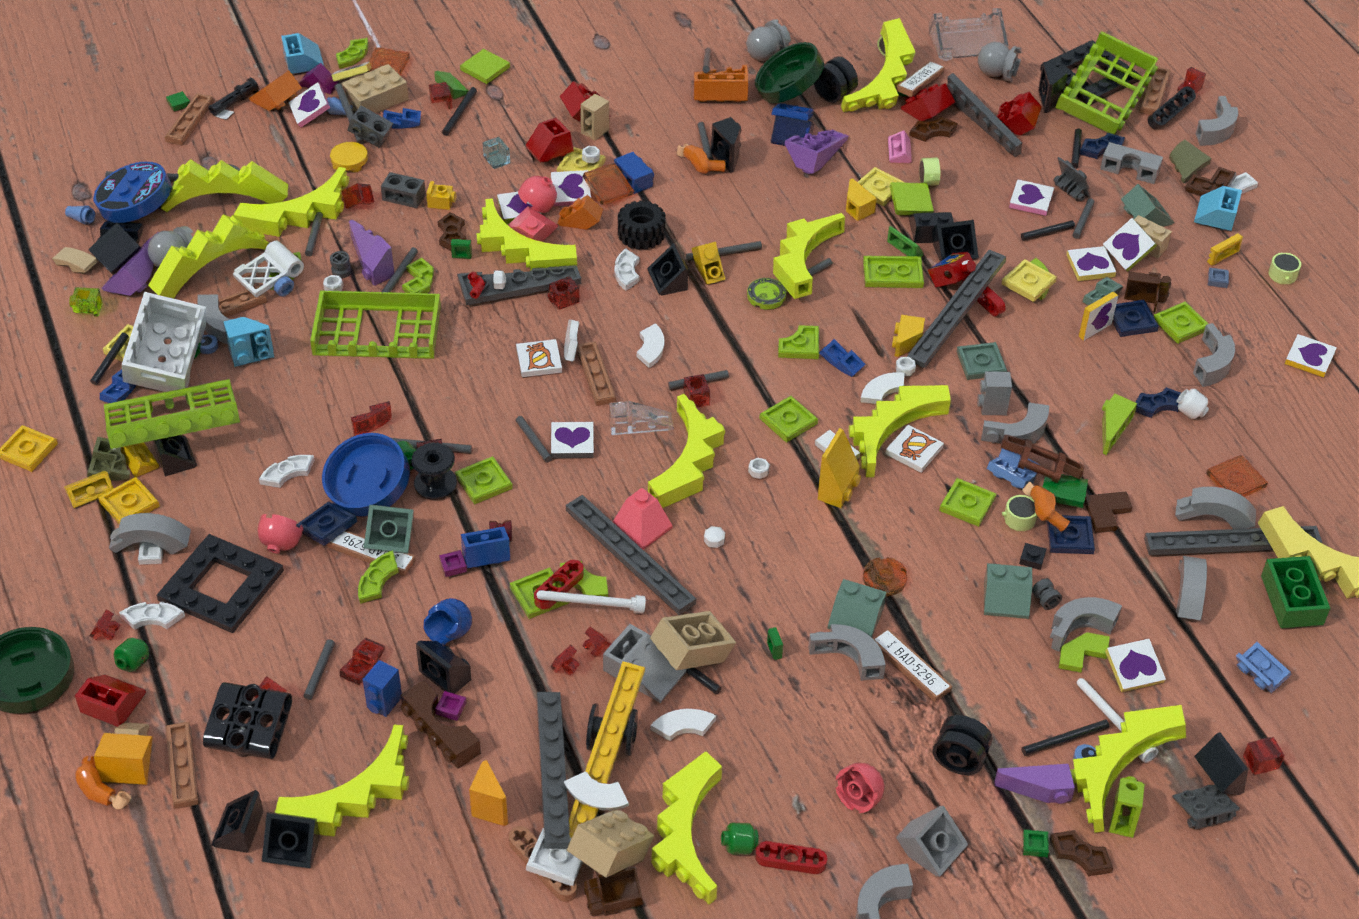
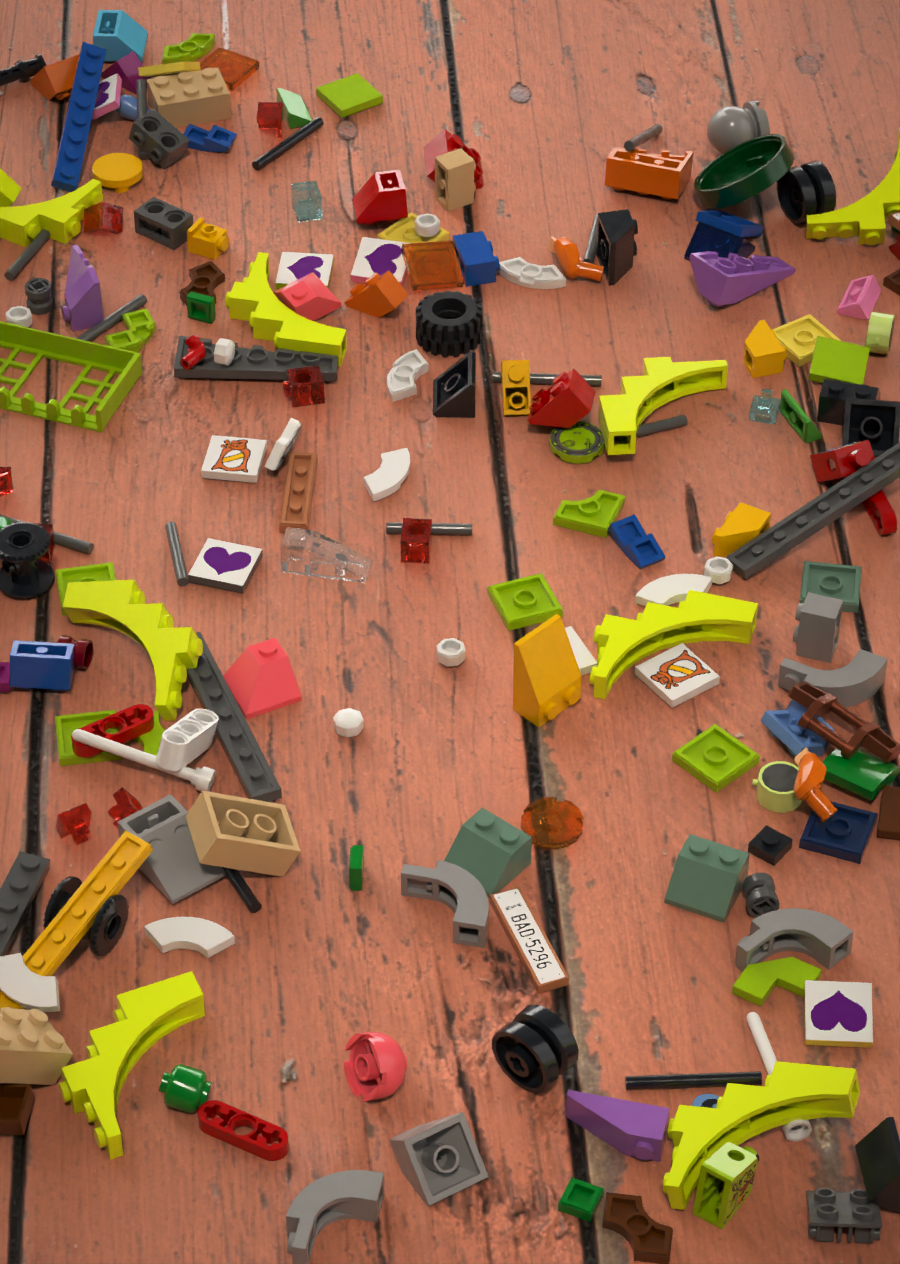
camera: 20 degrees right, 5 degrees down
(305, 121) = (78, 117): none -> blue plate
(522, 490) = (123, 608): none -> neon yellow arch
(538, 192) = (332, 259): coral cylinder -> none
(616, 579) = (187, 739): none -> white beam
(676, 176) = (531, 275): none -> white tile
(686, 474) = (347, 637): neon yellow arch -> none
(747, 267) = (563, 402): none -> red slope
(878, 241) = (765, 407): none -> clear light blue tile
(893, 271) = (766, 450): lime tile -> none

